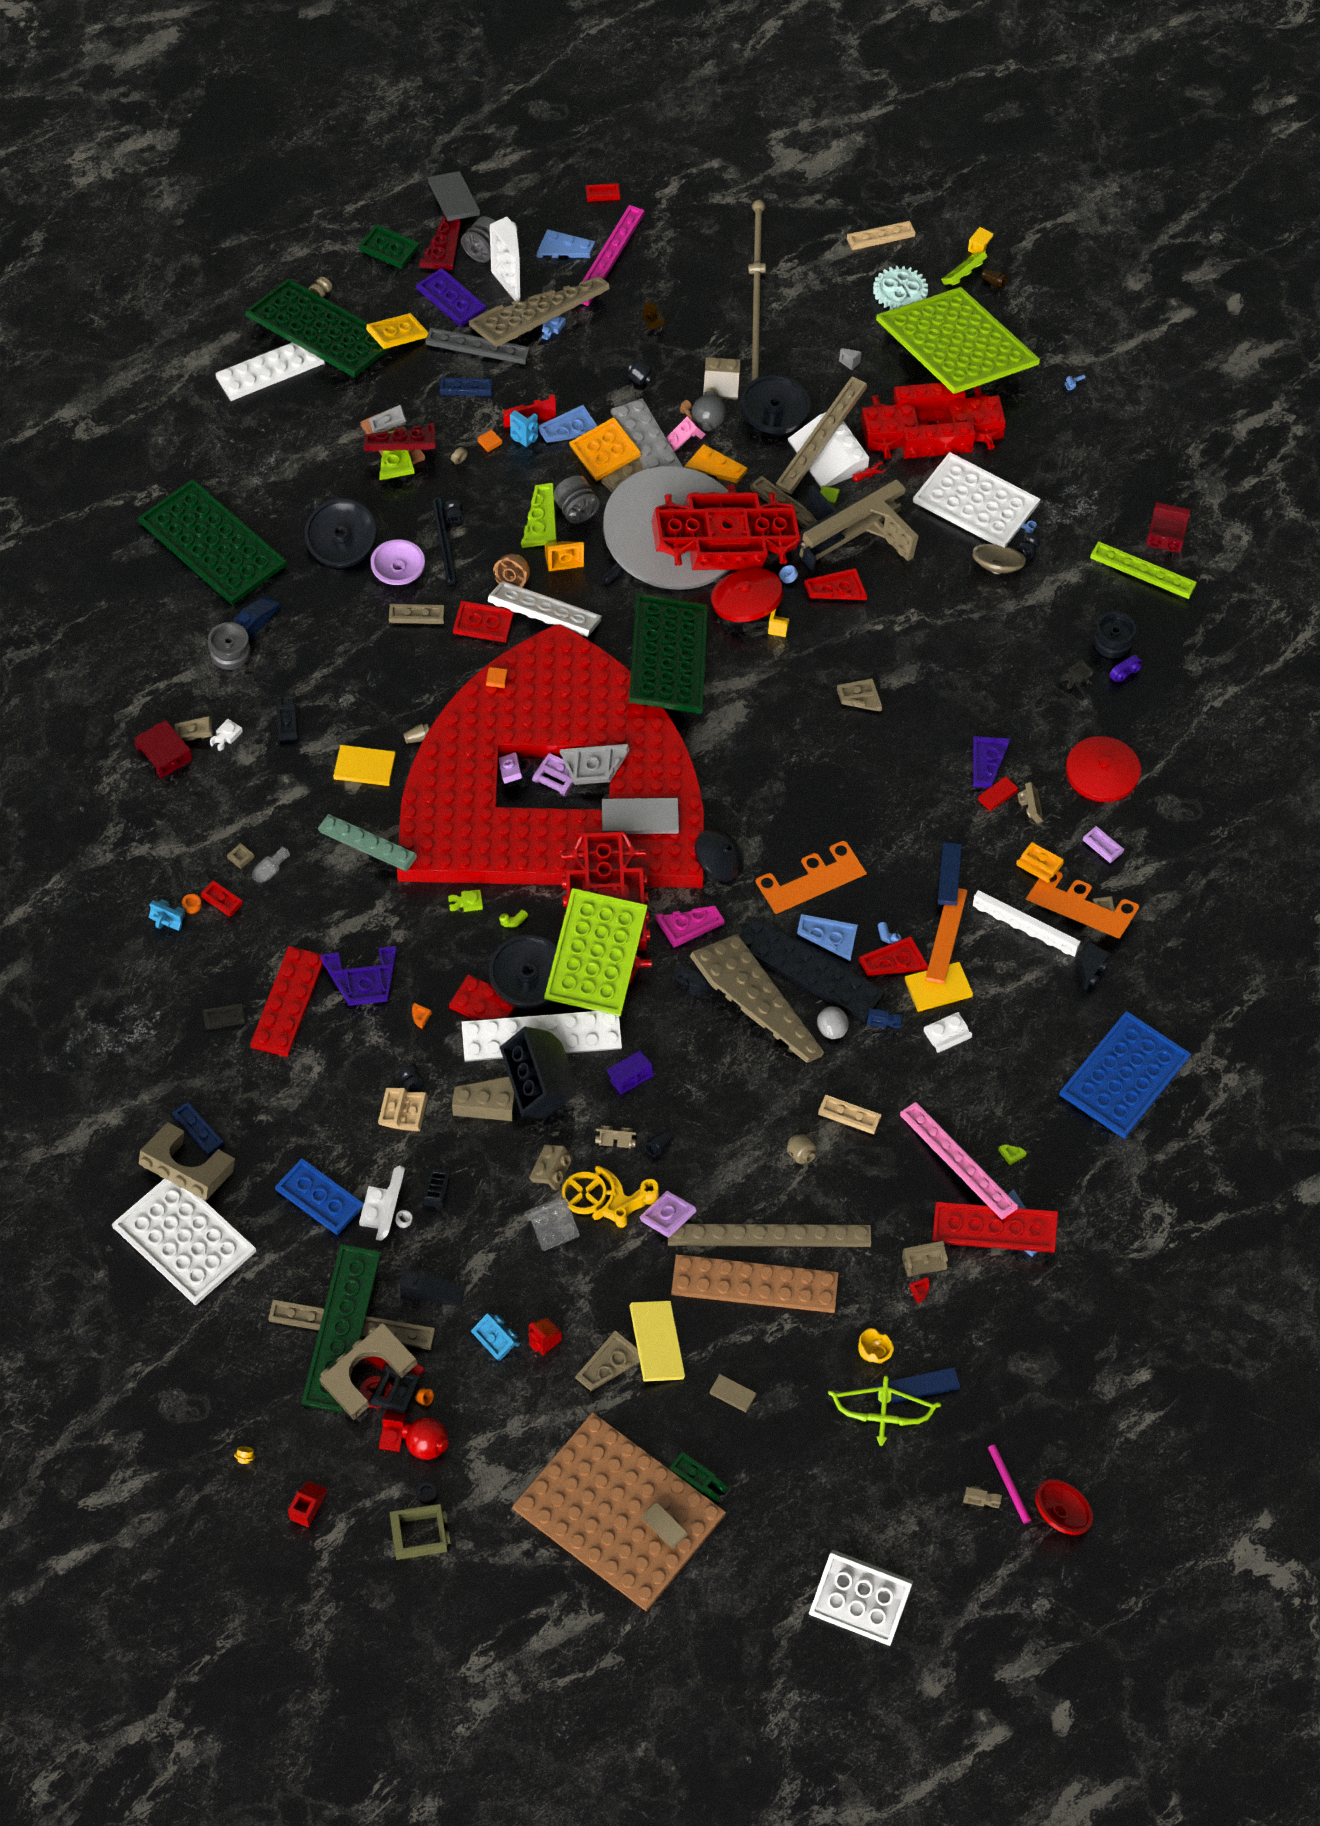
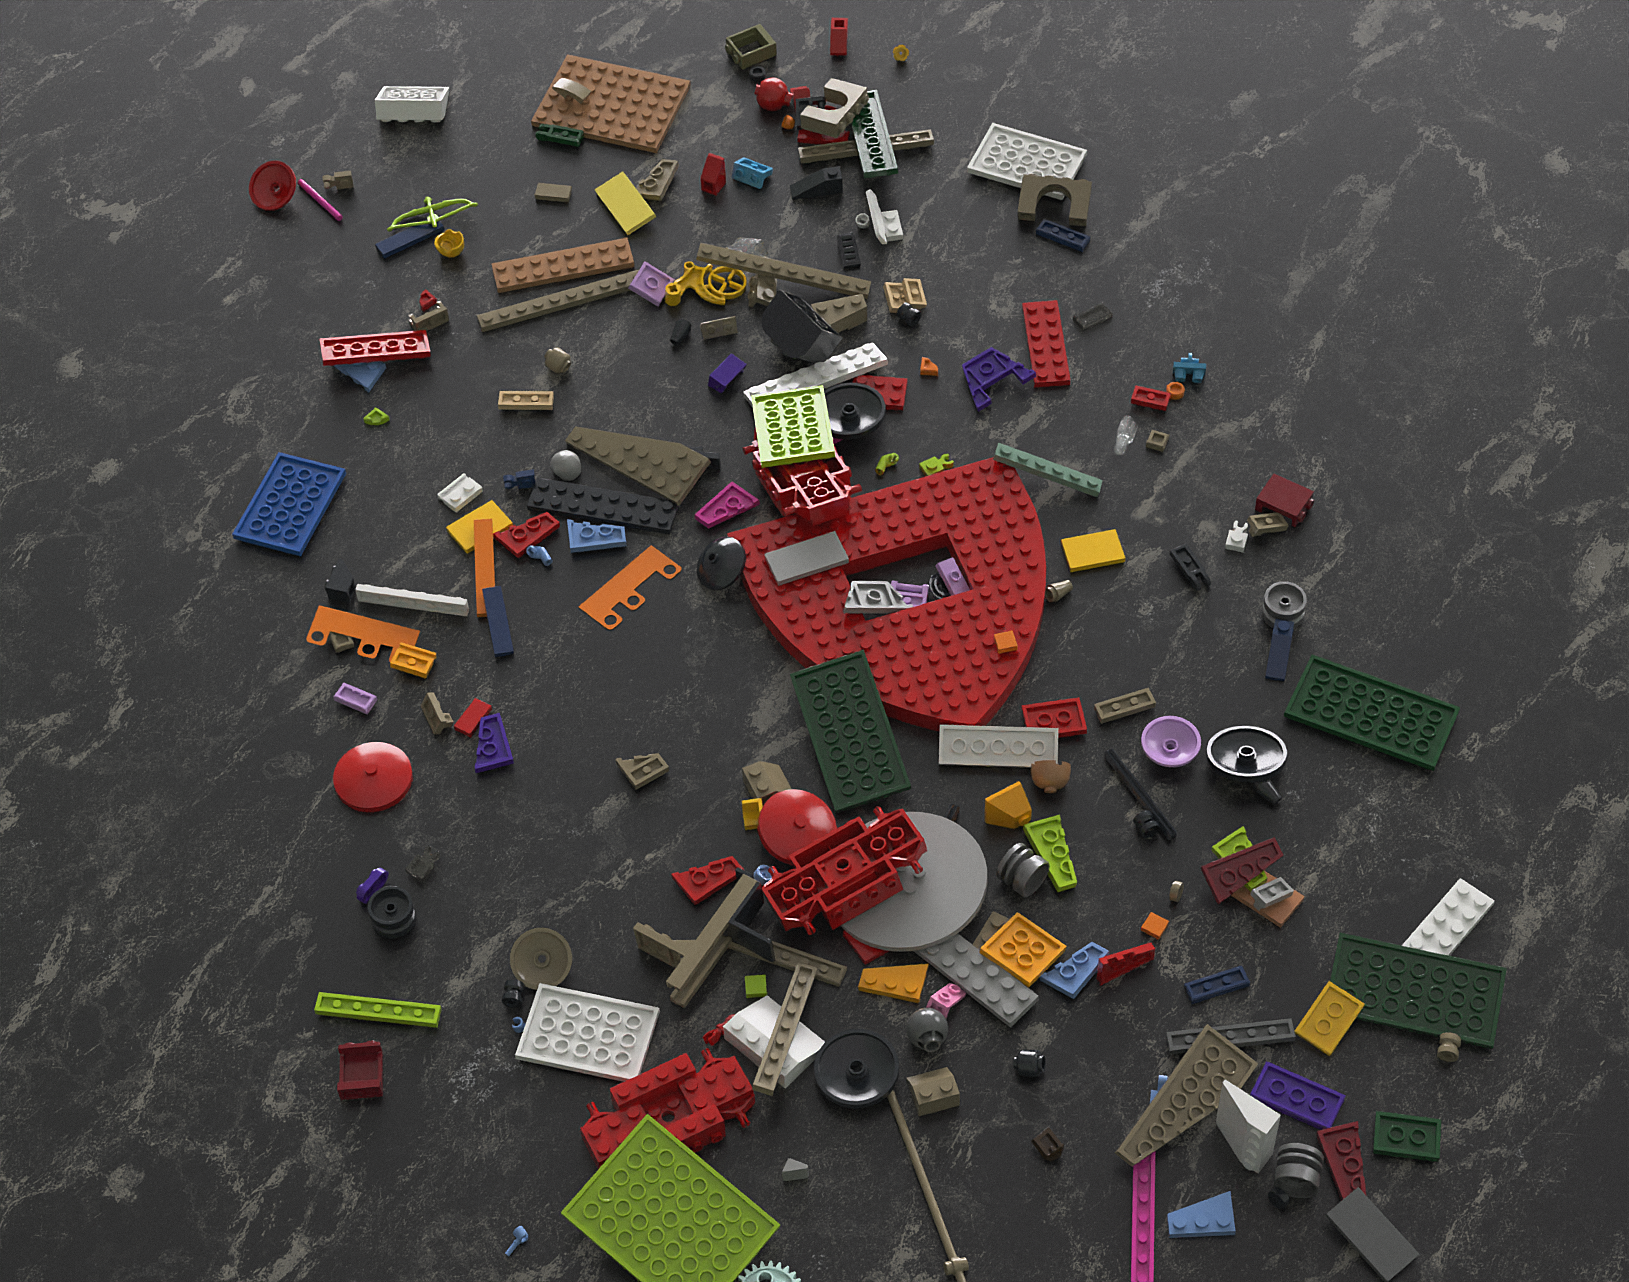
camera: 165 degrees right, 5 degrees down
(319, 1196) = (938, 216): blue plate -> none
(522, 1169) = (783, 270): none -> dark tan plate
(523, 429) = (1122, 934): dark azure bracket -> none
(685, 407) = (959, 1040): medium nougat hand -> none
(756, 644) = (764, 780): none -> dark tan slope
(959, 1160) = (420, 386): bright pink tile -> none

